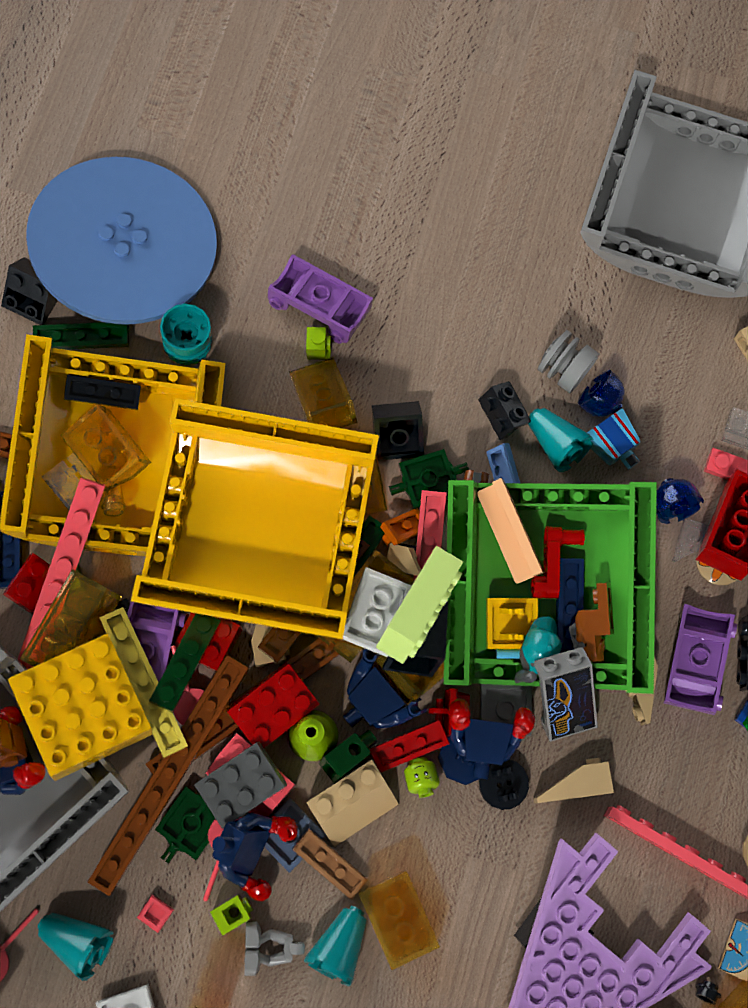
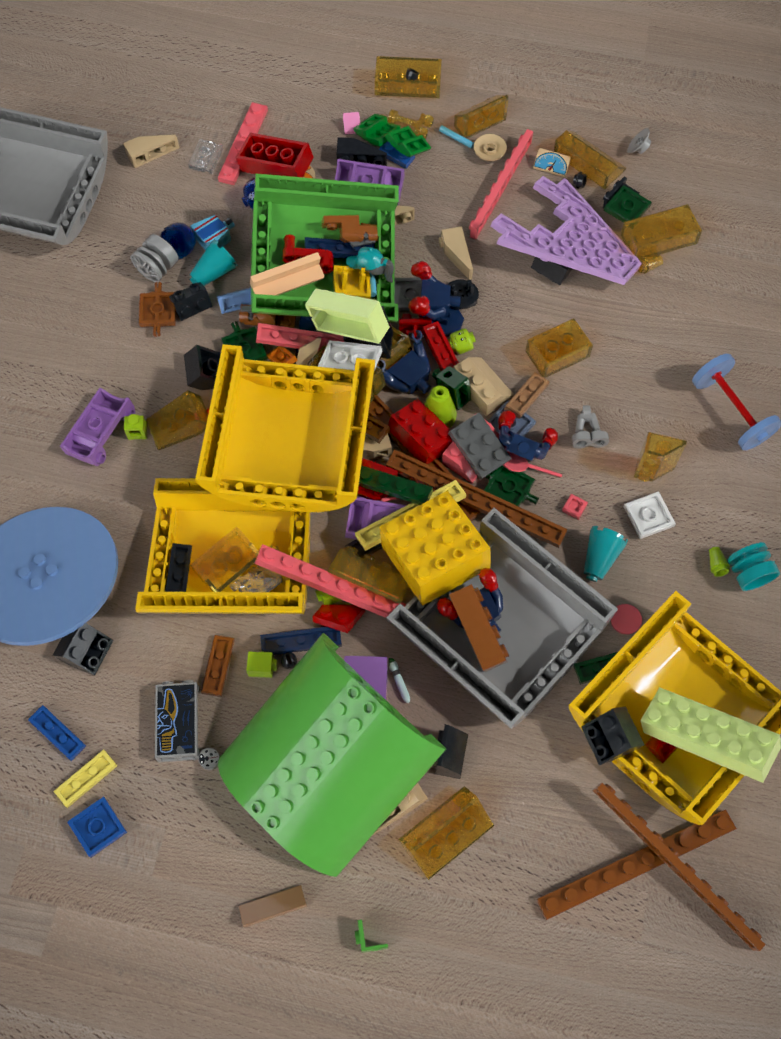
camera: 90 degrees left, 10 degrees down
(85, 335) = (125, 606): dark green plate -> none
(186, 322) = (127, 517): teal wheel -> none
(222, 914) = (569, 447): lime brick -> none
(339, 946) = (582, 382): teal cone -> none
(493, 366) = (156, 309): none -> dark orange plate
(567, 694) = (396, 242): panel -> none

